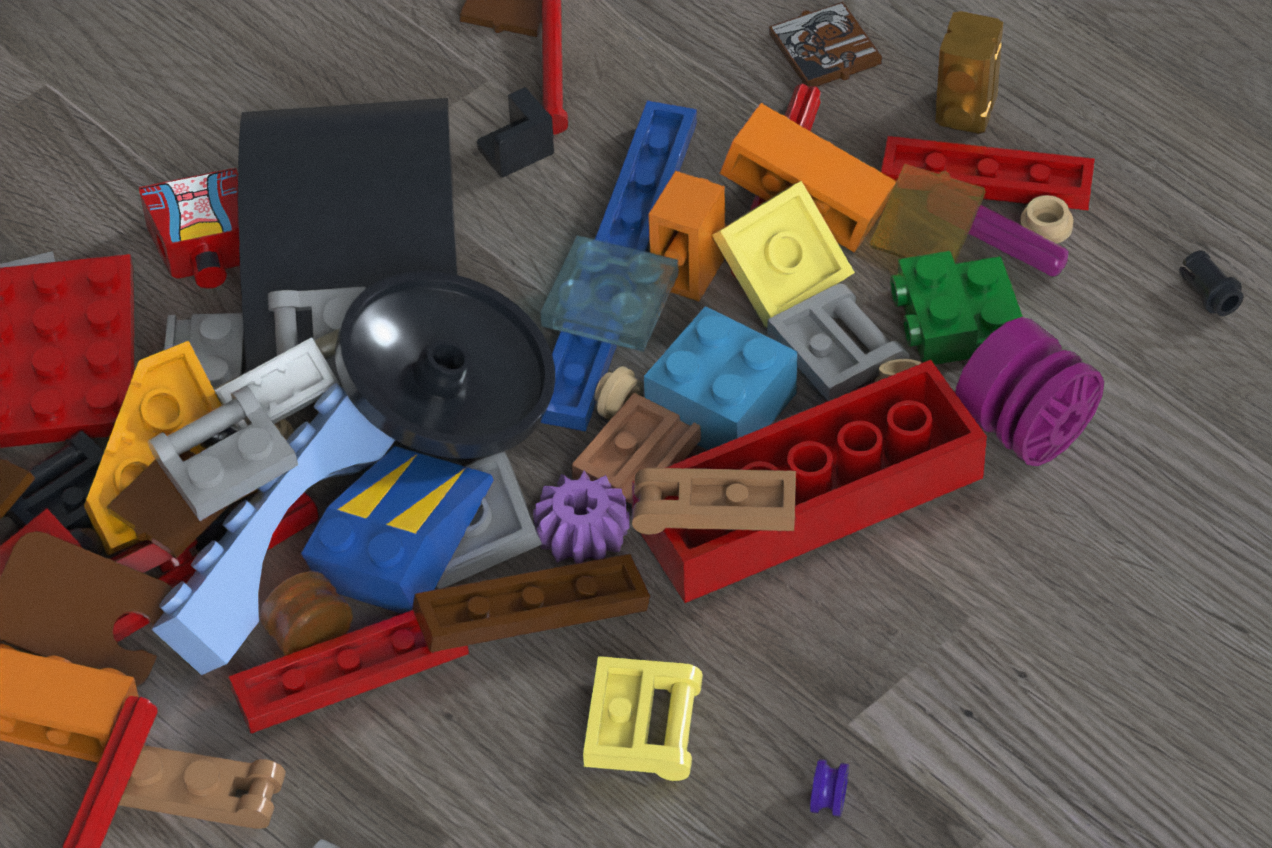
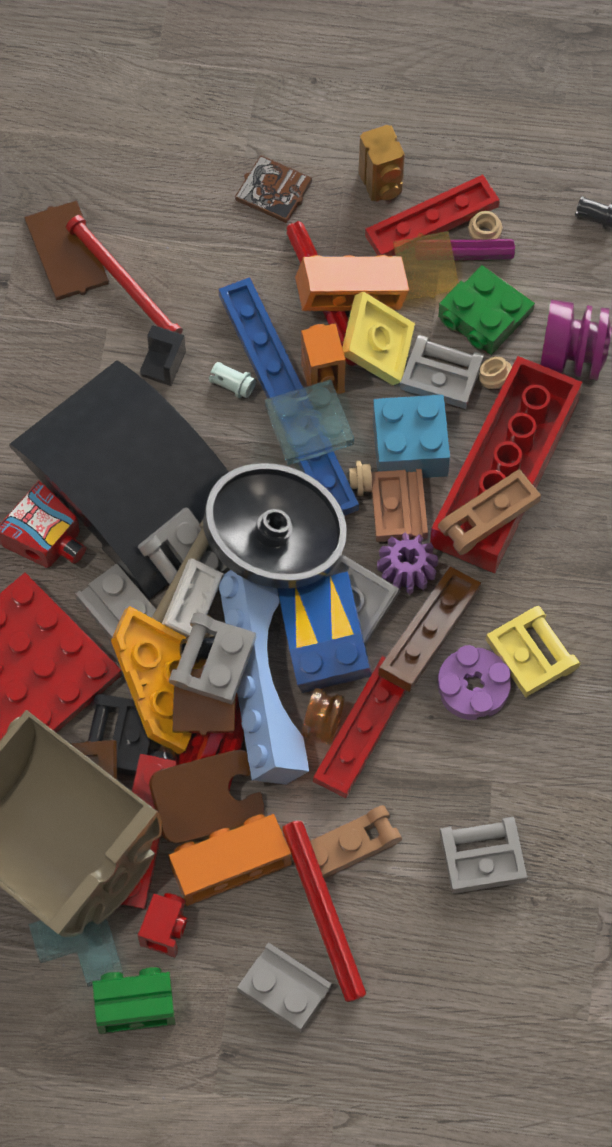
camera: 40 degrees left, 15 degrees up
(526, 679) = (469, 663): none -> medium lavender plate
(576, 213) = (232, 380): none -> light aqua pin

